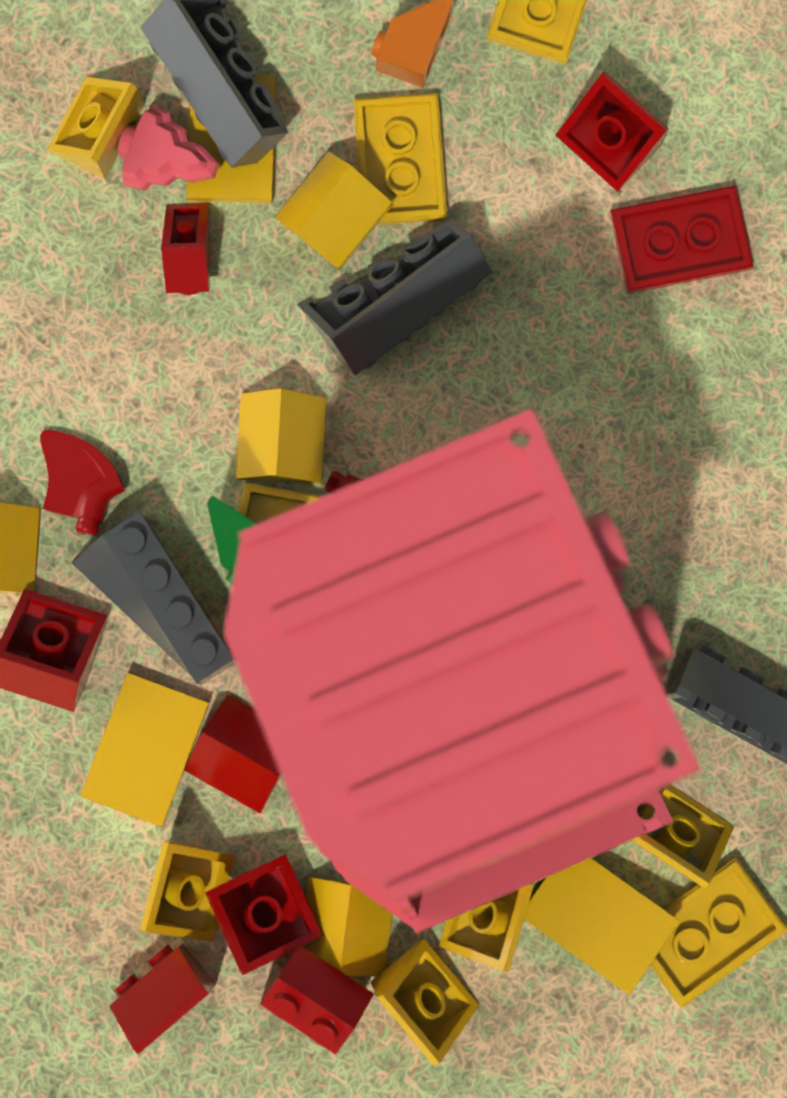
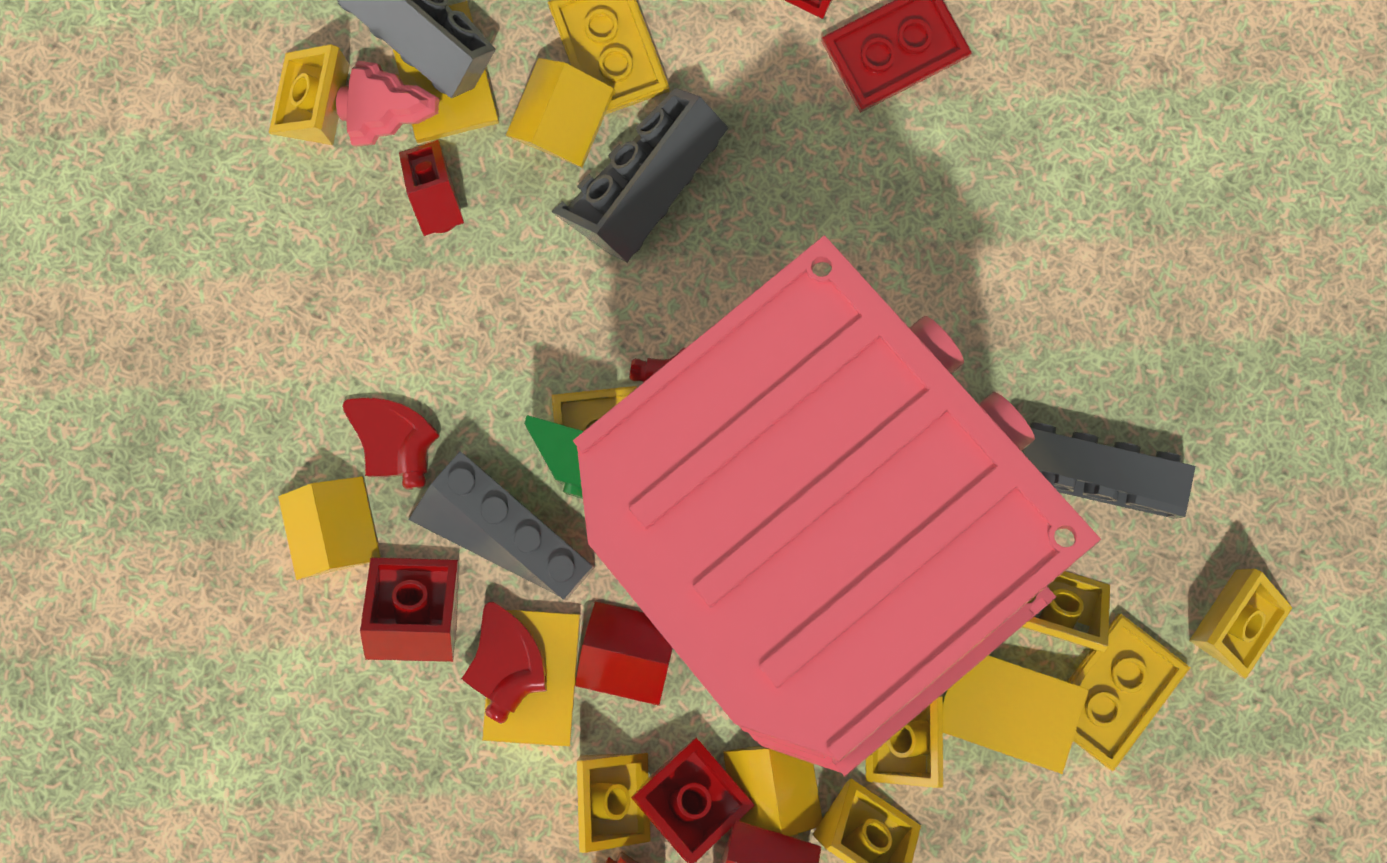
camera: 20 degrees left, 0 degrees up
(124, 728) = (506, 663): none -> red arm
(281, 436) = (573, 341): yellow slope -> none

